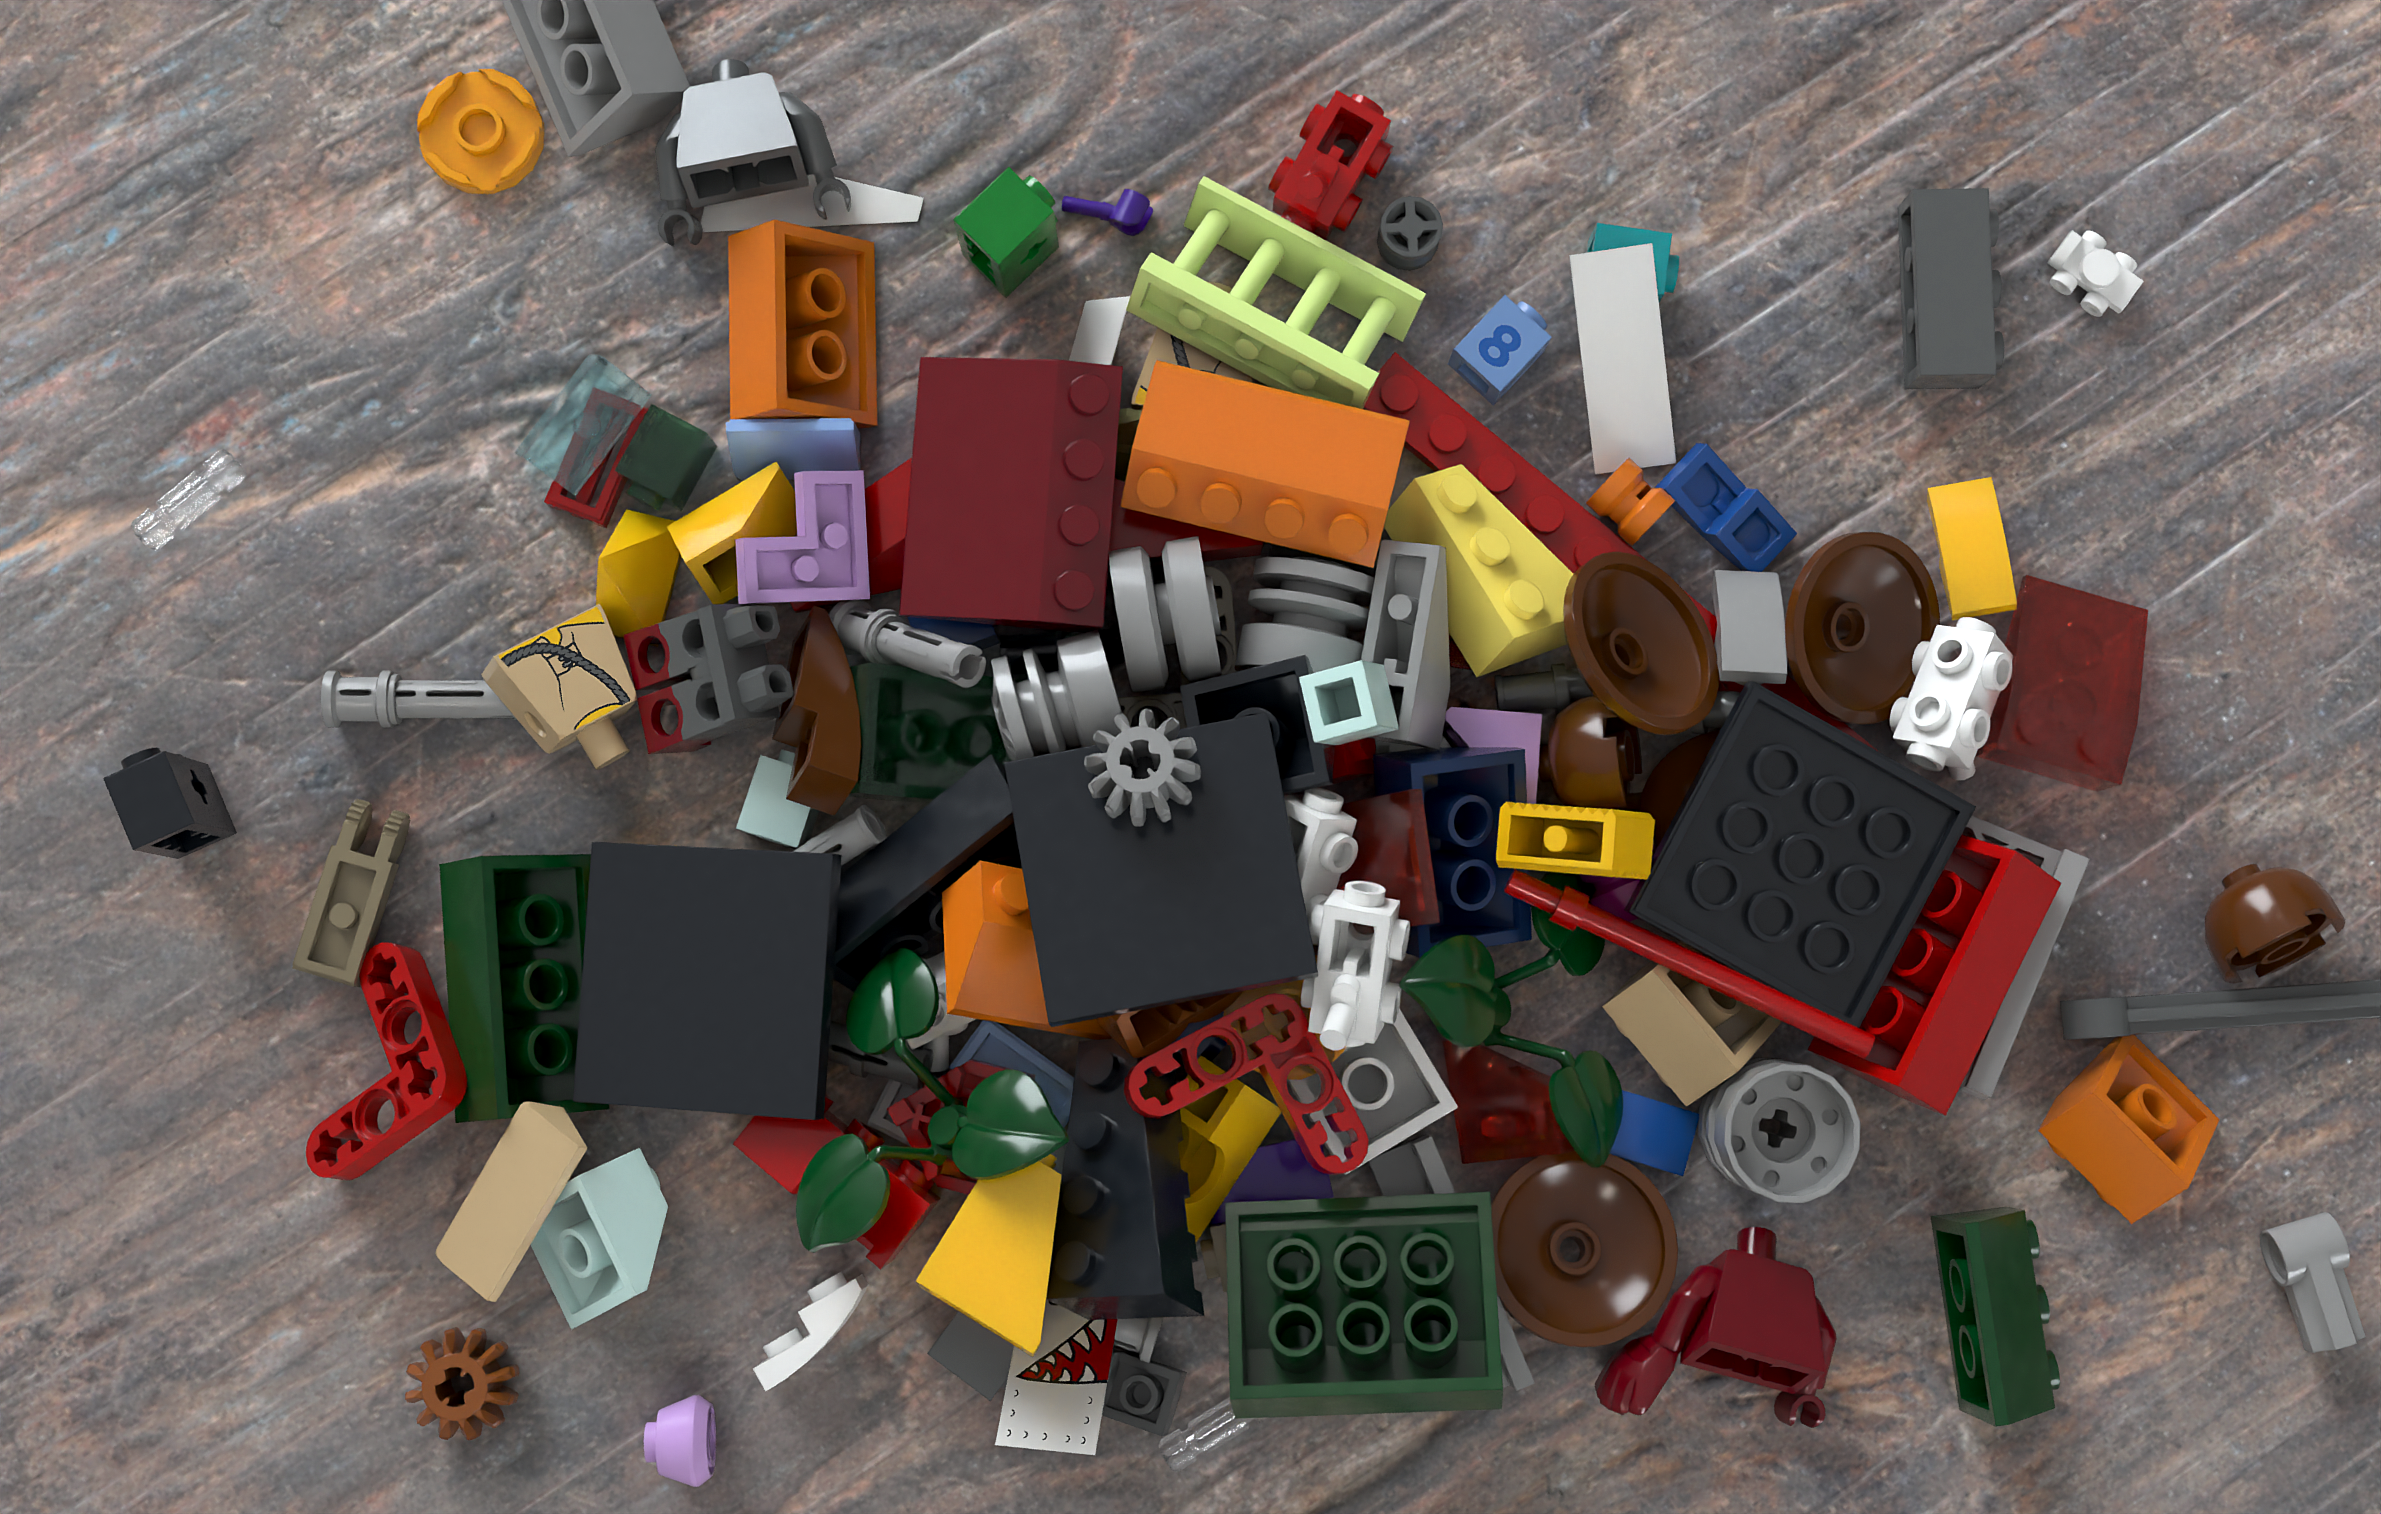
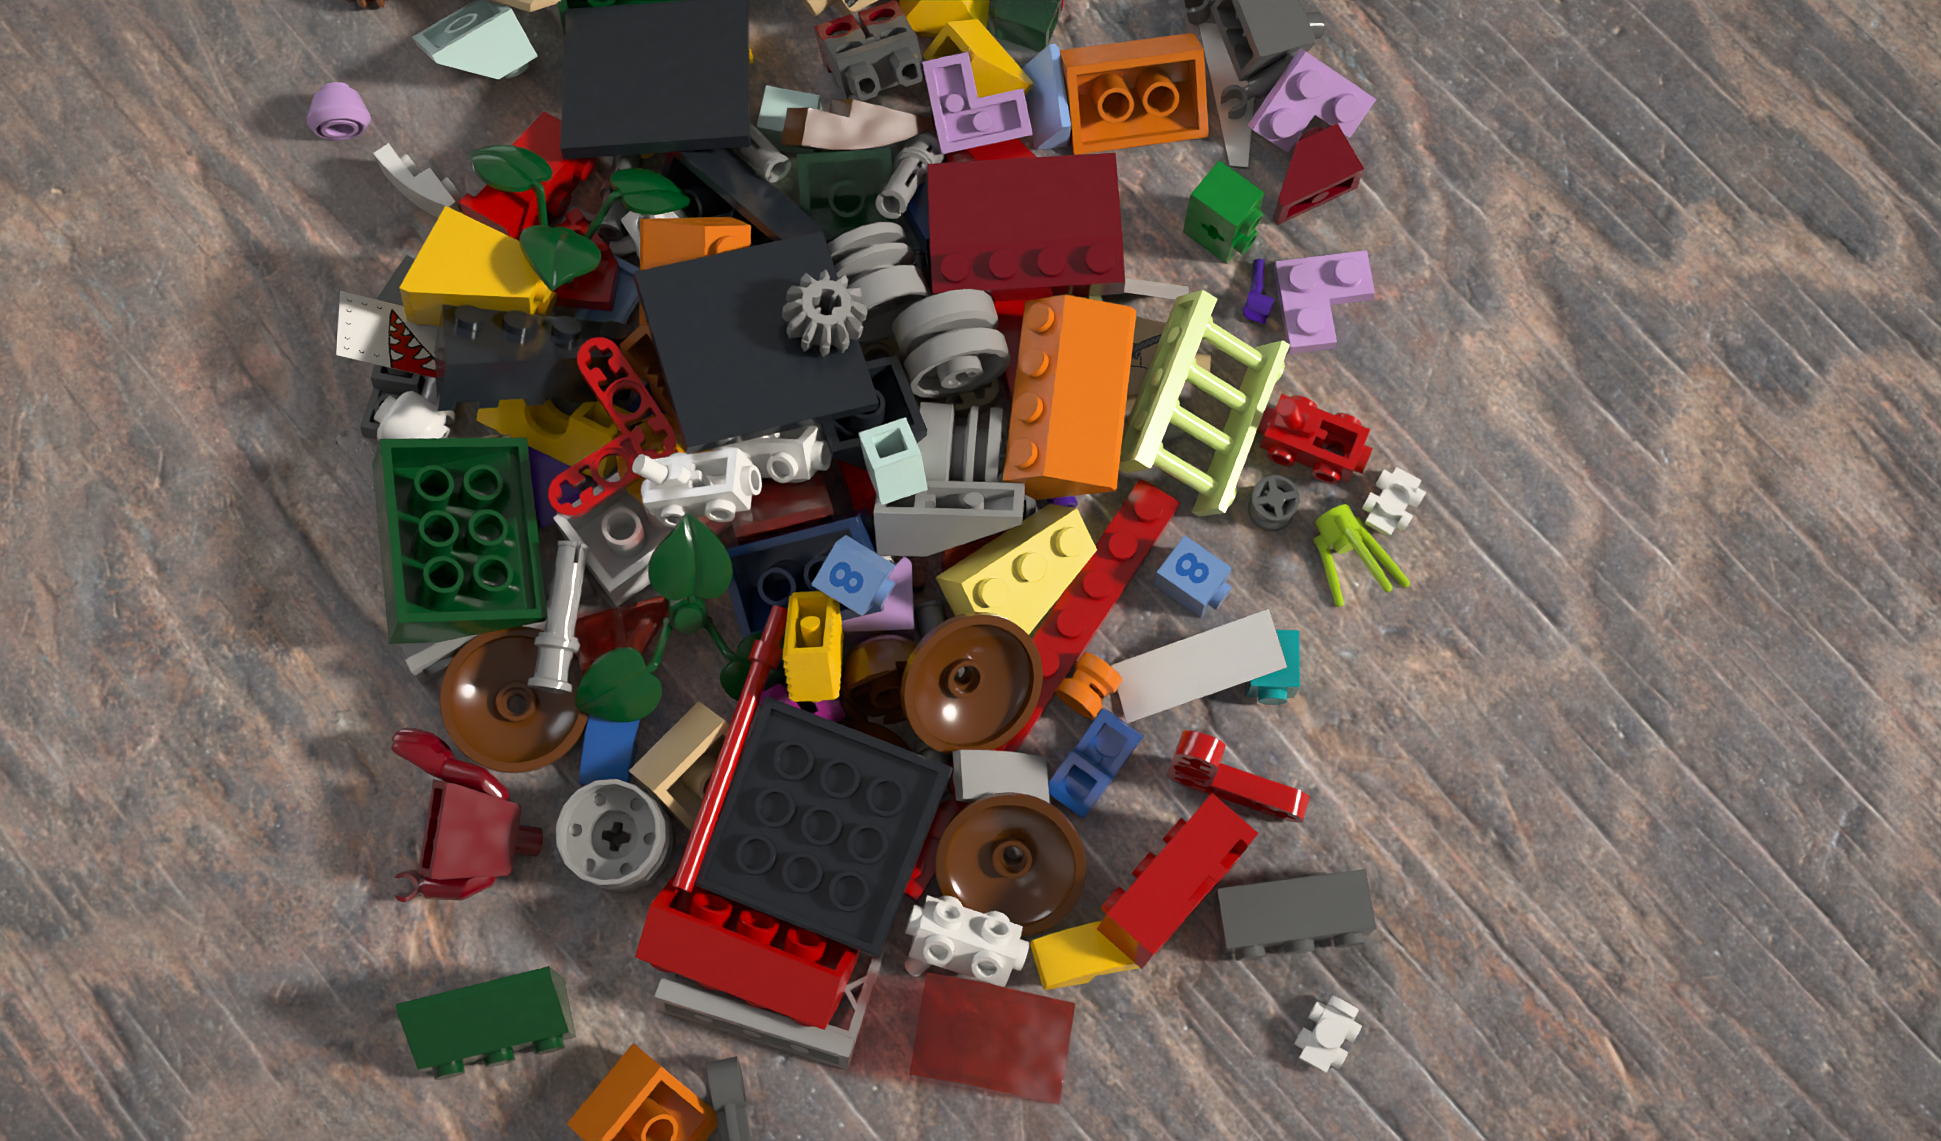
camera: 85 degrees right, 10 degrees down
(841, 101) = (1305, 91): none -> lavender plate
(951, 105) = (1318, 172): none -> dark red slope
(1115, 147) = (1309, 288): none -> lavender plate
(1183, 1362) = (410, 418): none -> white head
(1424, 86) = (1389, 508): none -> white piece
(1459, 147) = (1343, 533): none -> lime plant
(1492, 774) = (855, 576): none -> medium blue brick
(1520, 1181) = (558, 640): none -> light grey pin
(1779, 343) = (1199, 767): none -> red beam
(1906, 427) = (1175, 880): none -> red wedge

